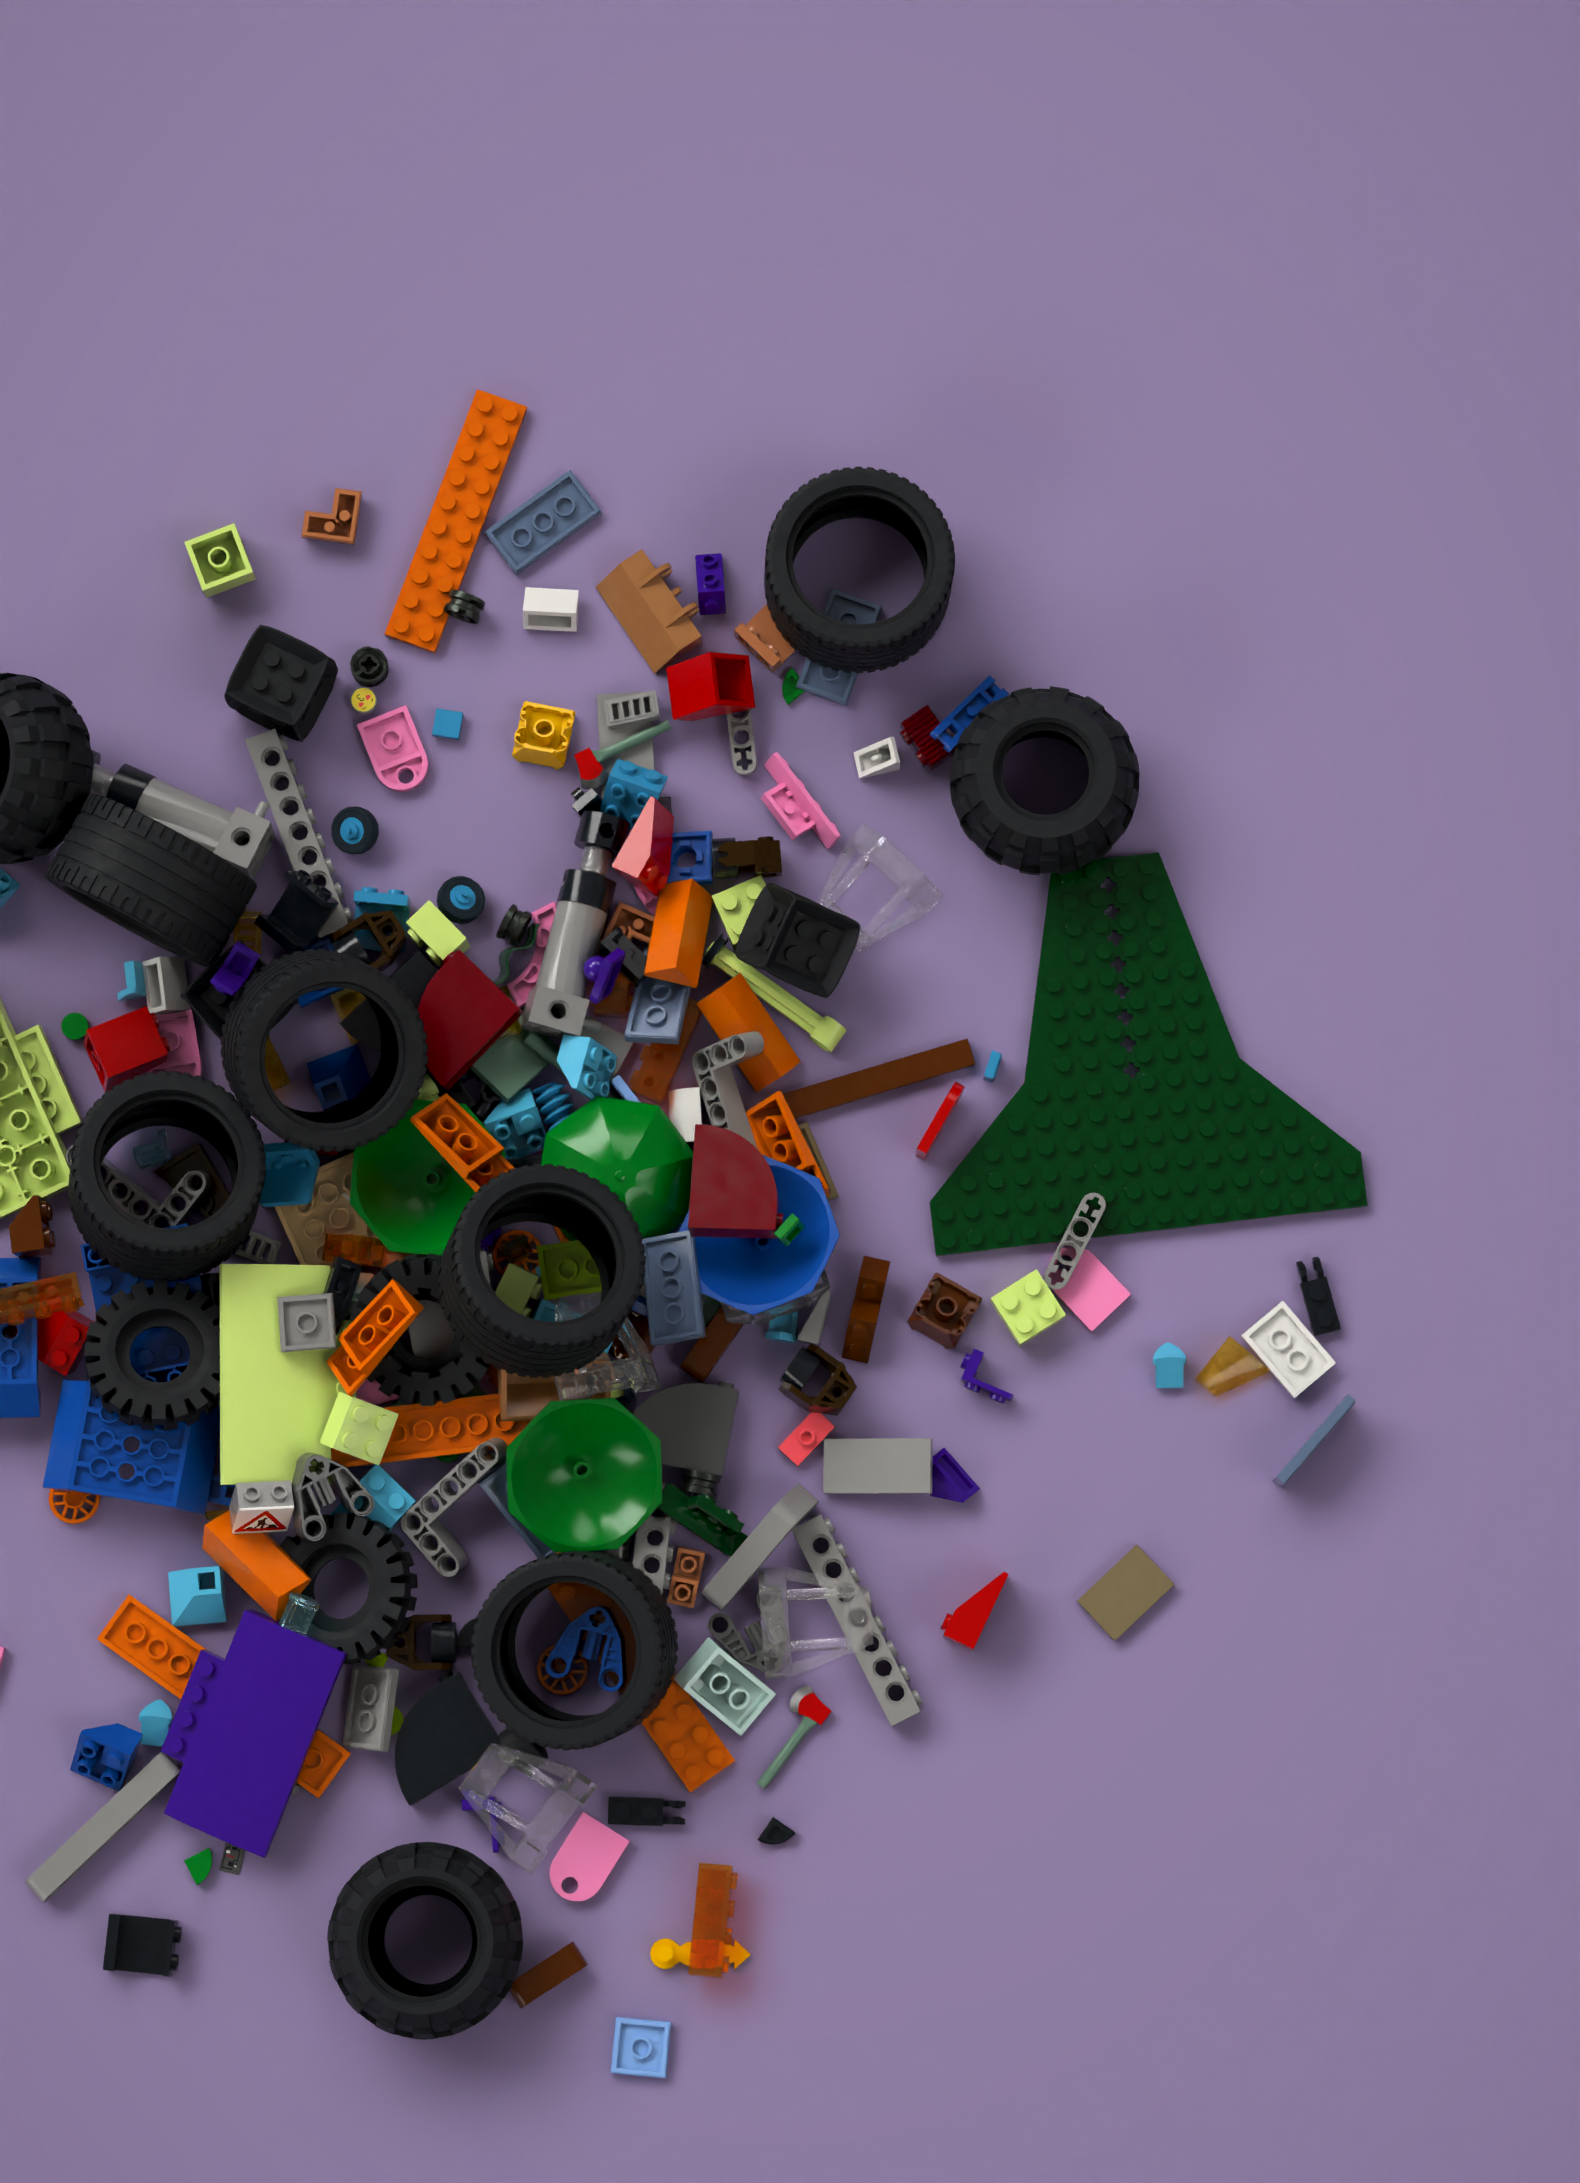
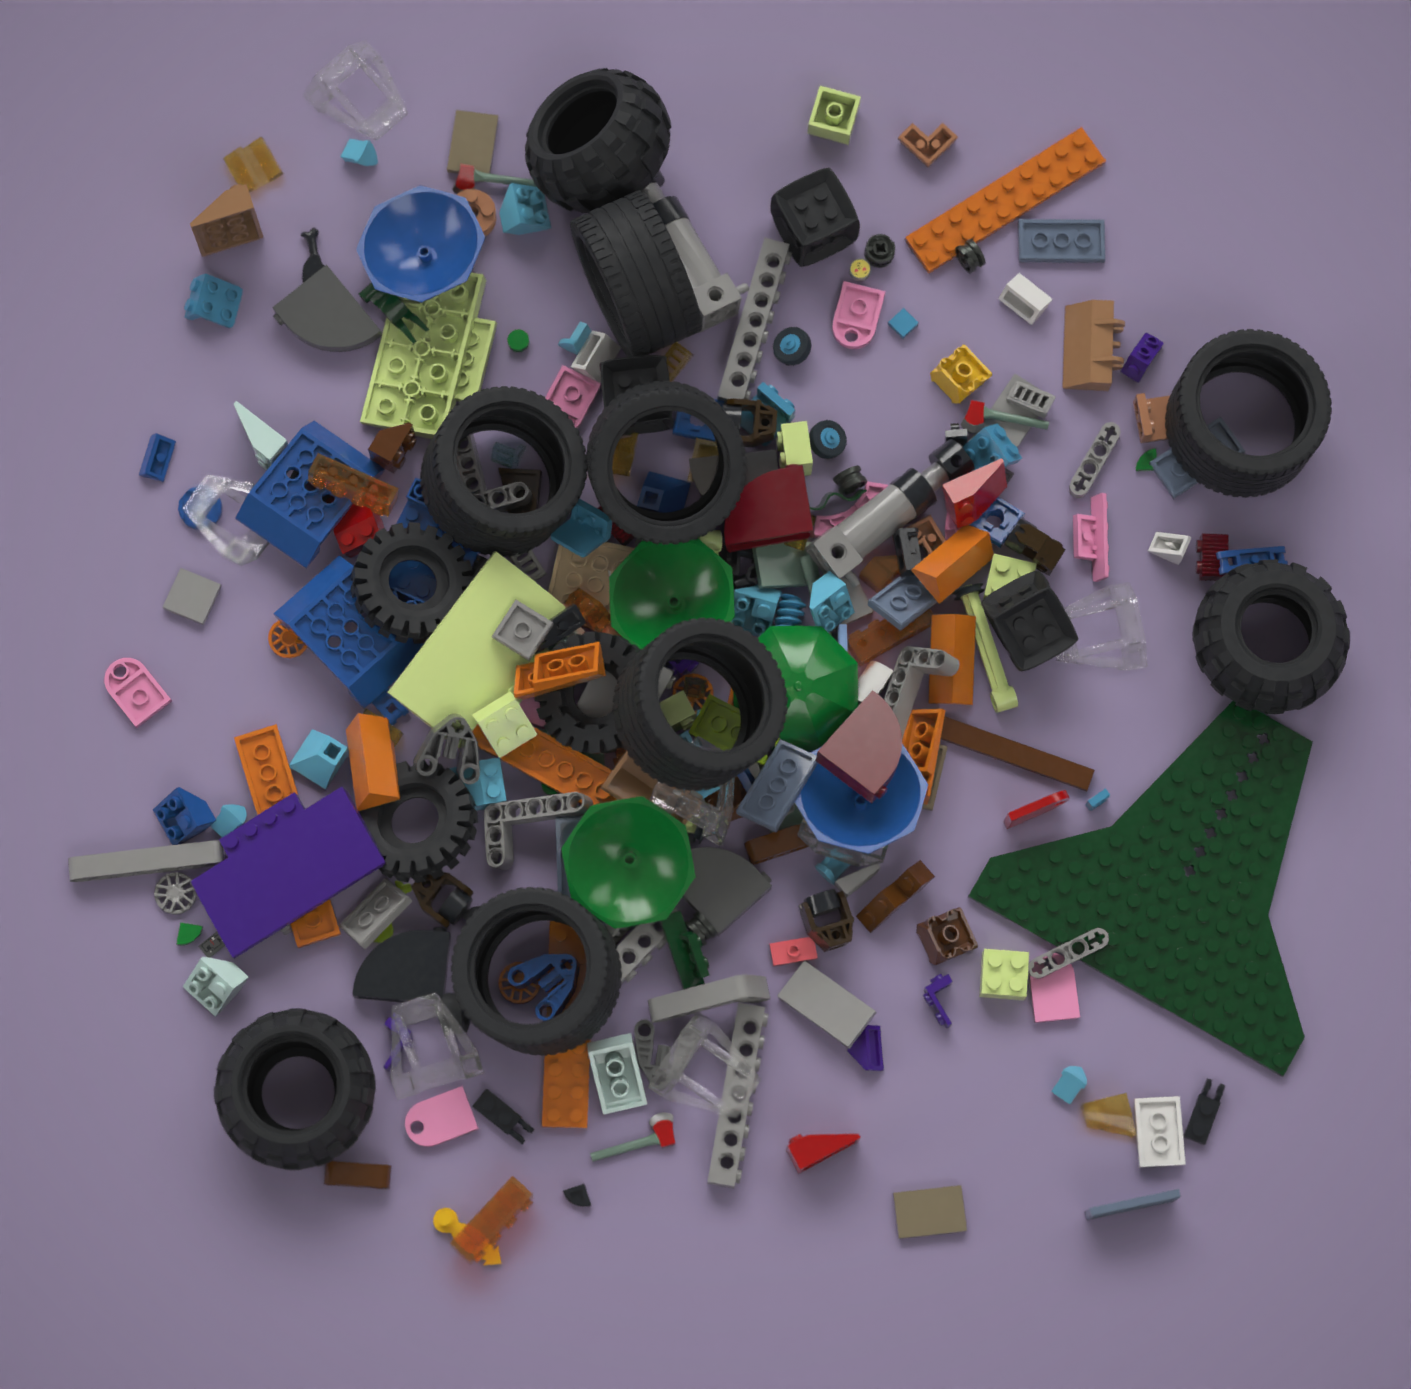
camera: 30 degrees right, 5 degrees down
(125, 1047) = (542, 372): red slope -> none
(142, 1944) = (111, 956): black panel -> none
(156, 1835) = (175, 893): none -> light grey wheel
(235, 969) = (647, 369): dark purple bracket -> none
(261, 1507) = (403, 727): piece -> none
(265, 1894) = (215, 983): none -> light aqua slope
(298, 913) = (717, 370): black panel -> none
(299, 1612) = (375, 814): clear light blue tile -> none
(461, 1141) = (710, 584): orange slope -> none
(604, 973) = (885, 549): dark purple tile -> none
(640, 2047) = (382, 1270): light blue tile -> none
(686, 1576) = (645, 983): nougat slope -> none
(710, 686) = (1093, 420): red slope -> none
(789, 1230) = (883, 802): green tile -> none

